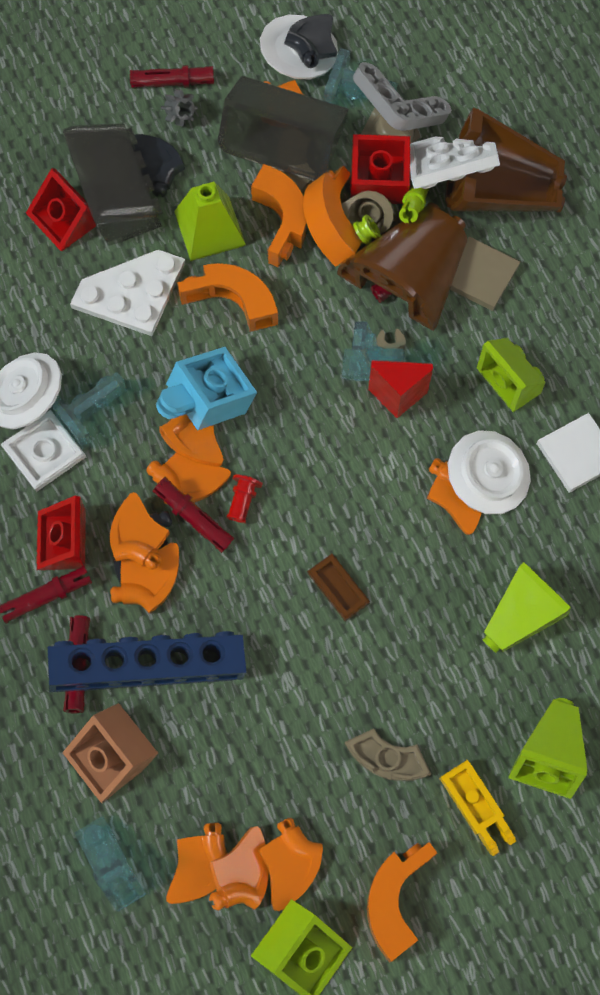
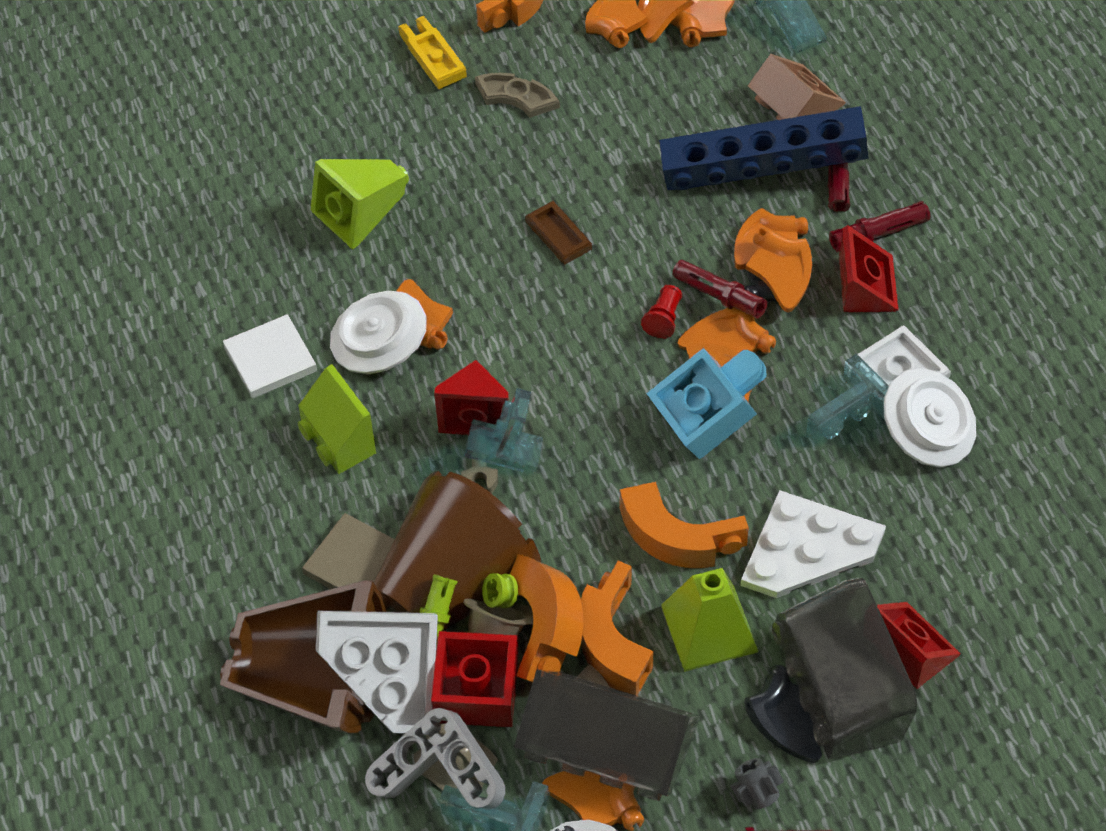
camera: 175 degrees left, 15 degrees down
(554, 752) = (352, 80): lime slope -> none

